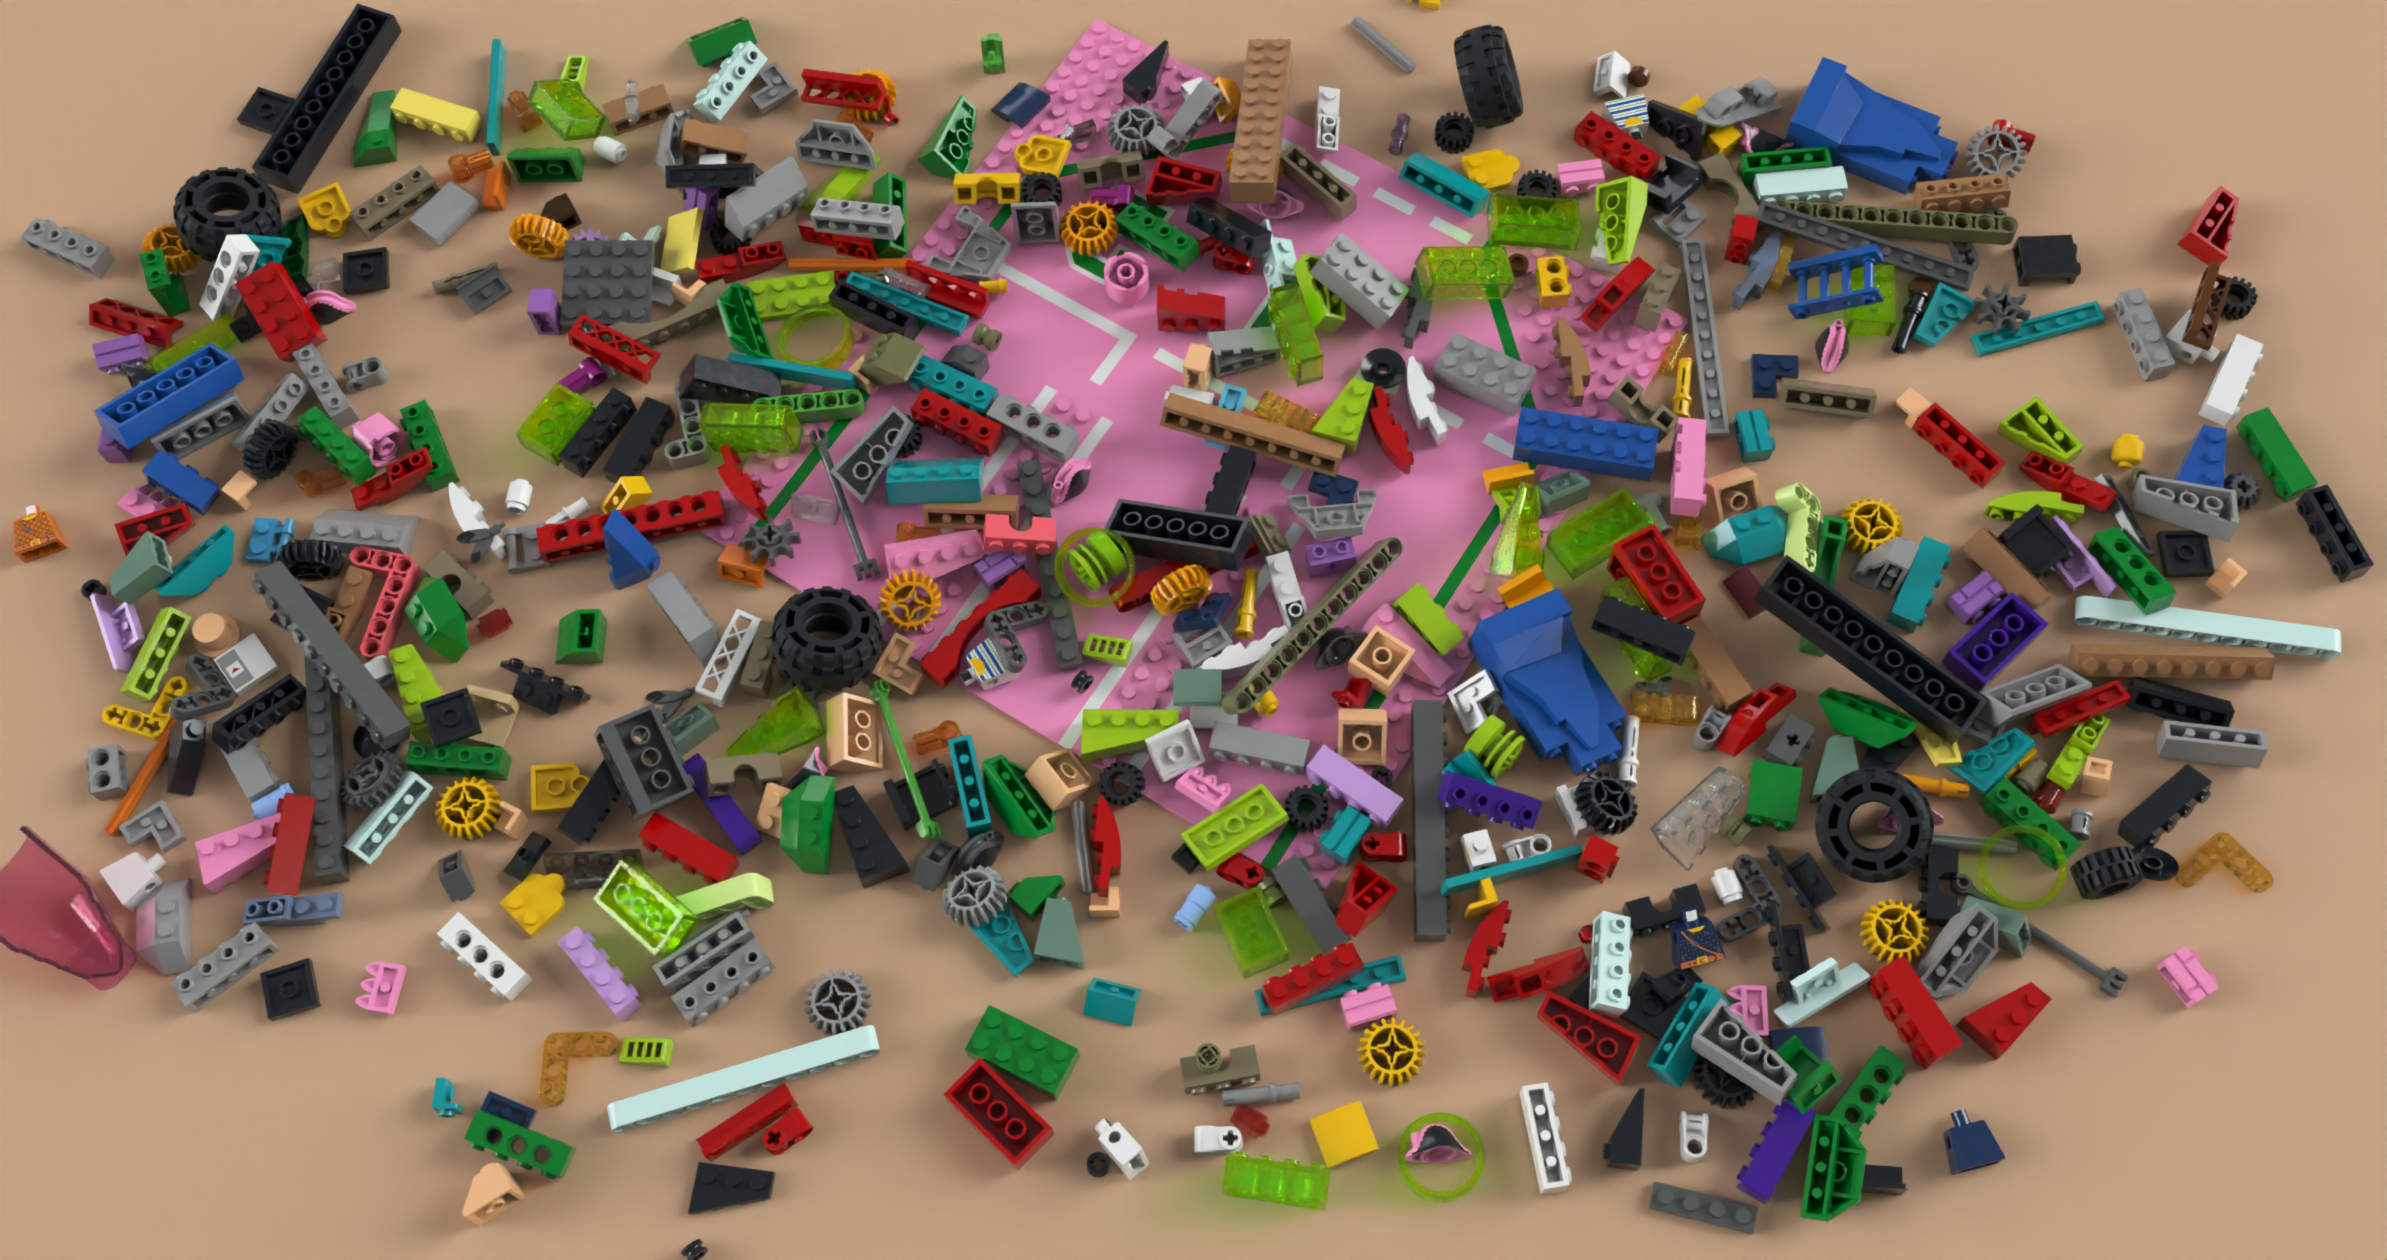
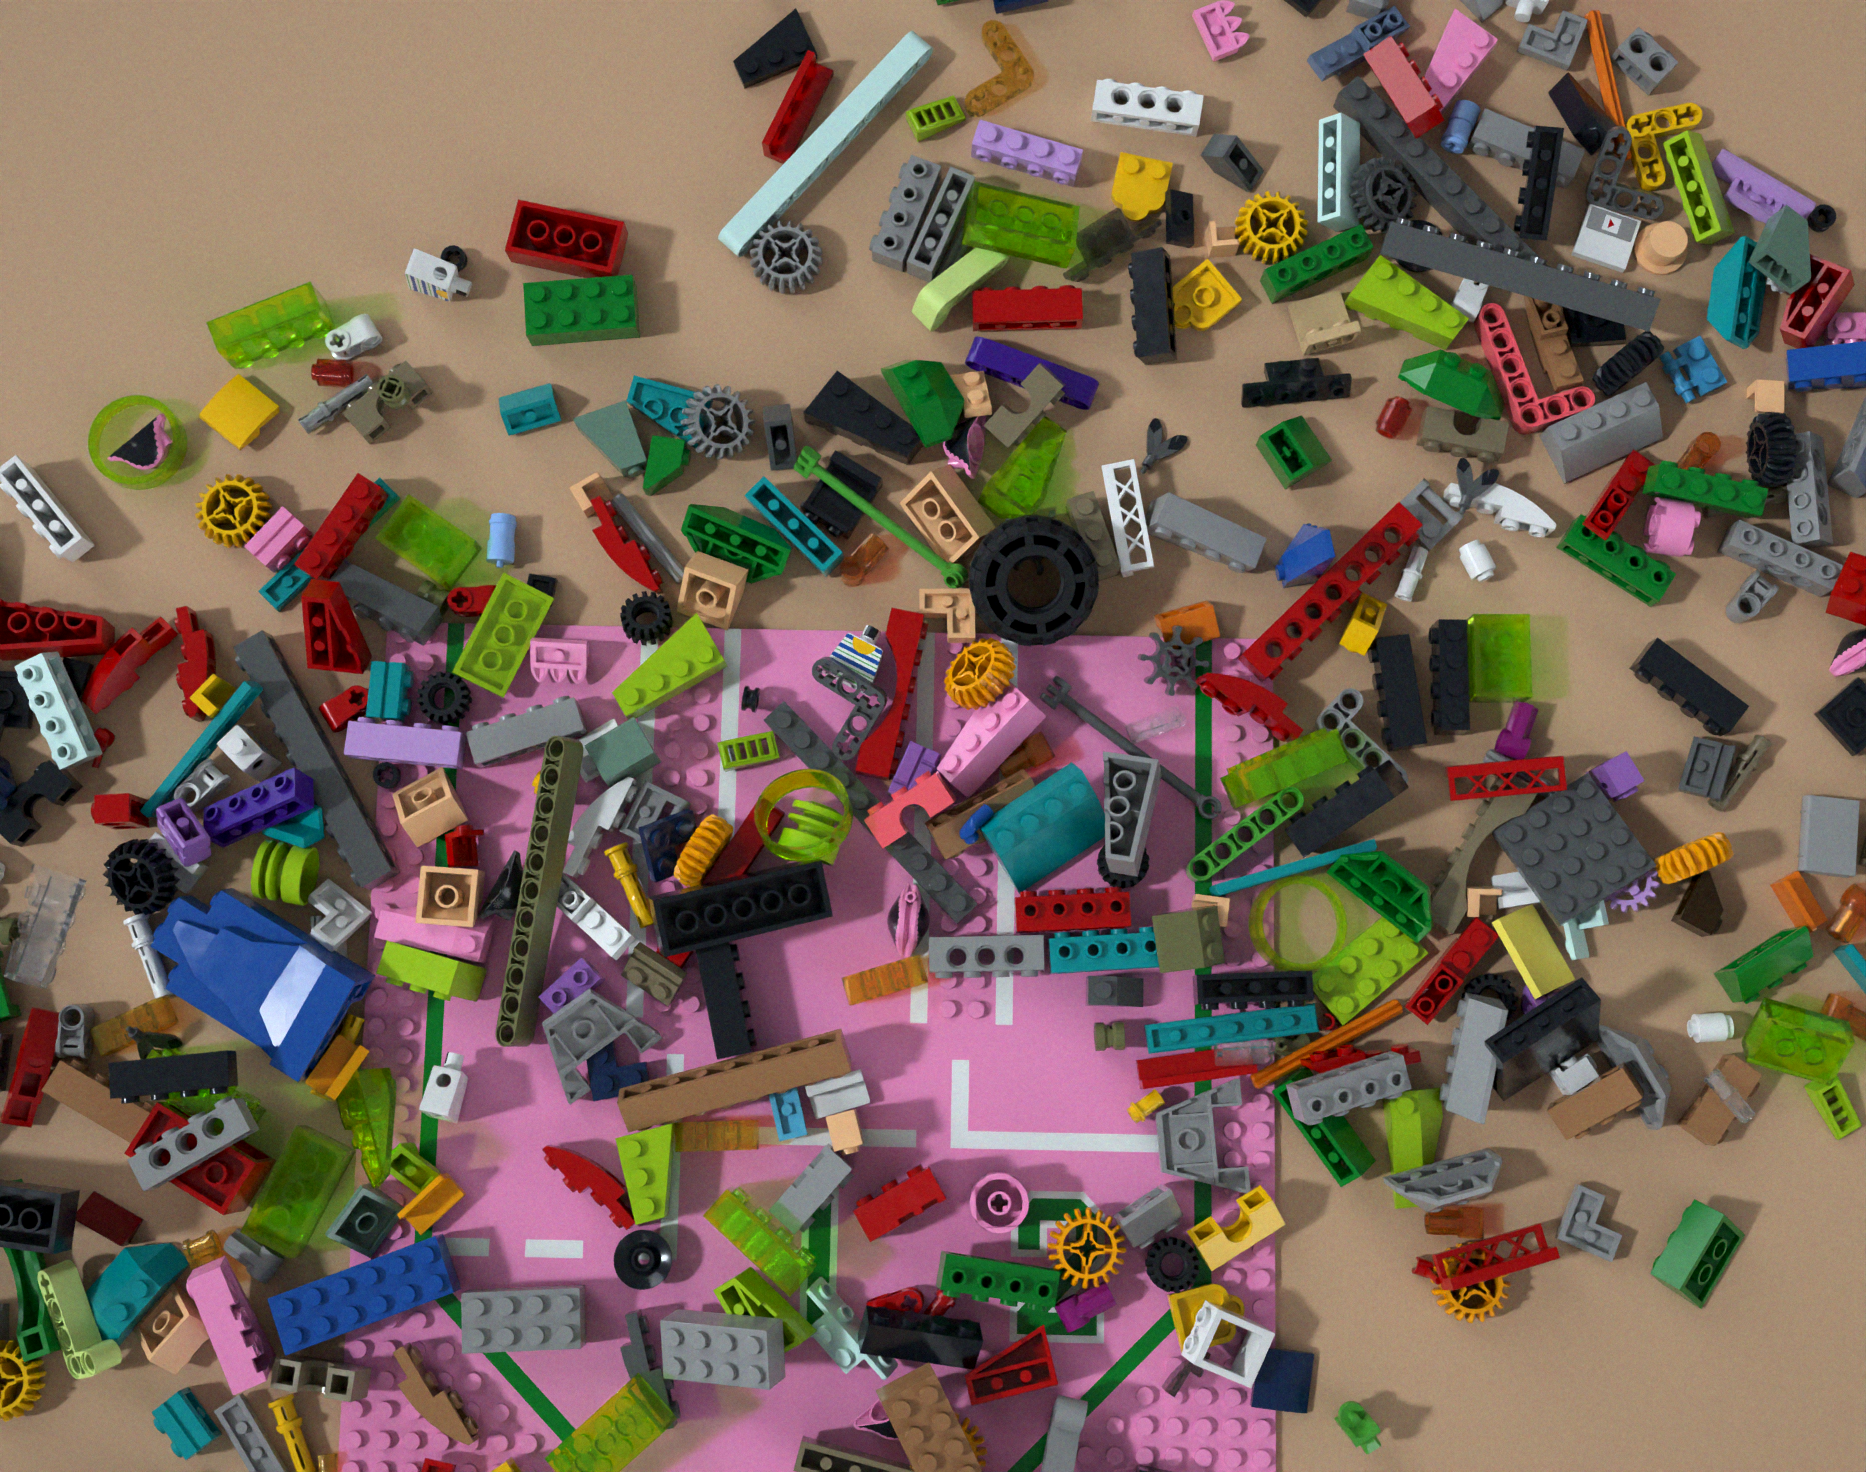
camera: 145 degrees right, 15 degrees up
(451, 718) = (1348, 285): black plate -> none
(453, 341) = (1688, 687): none -> black brick
(632, 773) = (1123, 350): dark grey brick -> none
(692, 727) = (1119, 428): sand green slope -> none
(730, 81) = (1640, 1198): light aqua brick -> none
(789, 1130) = (753, 124): red piece -> none
(951, 143) = (1325, 1266): green wedge -> none
(978, 850) = (746, 471): dark grey hat -> none
(984, 497) = (969, 829): none -> blue arm
(1033, 118) = (1250, 1353): none -> white window
(1111, 449) = (884, 980): none -> clear yellow beam
(1124, 166) = (1098, 1357): dark tan arch -> none
(1131, 127) = (1138, 1434): light grey gear -> none
(1175, 750) = (607, 675): white tile -> none
(1421, 404) = (586, 1250): white slope -> none
(1457, 536) = (443, 1101): none -> white torso
(1554, 810) = (183, 832): none -> medium lavender brick
(1661, 565) = (237, 1125): none -> light grey brick

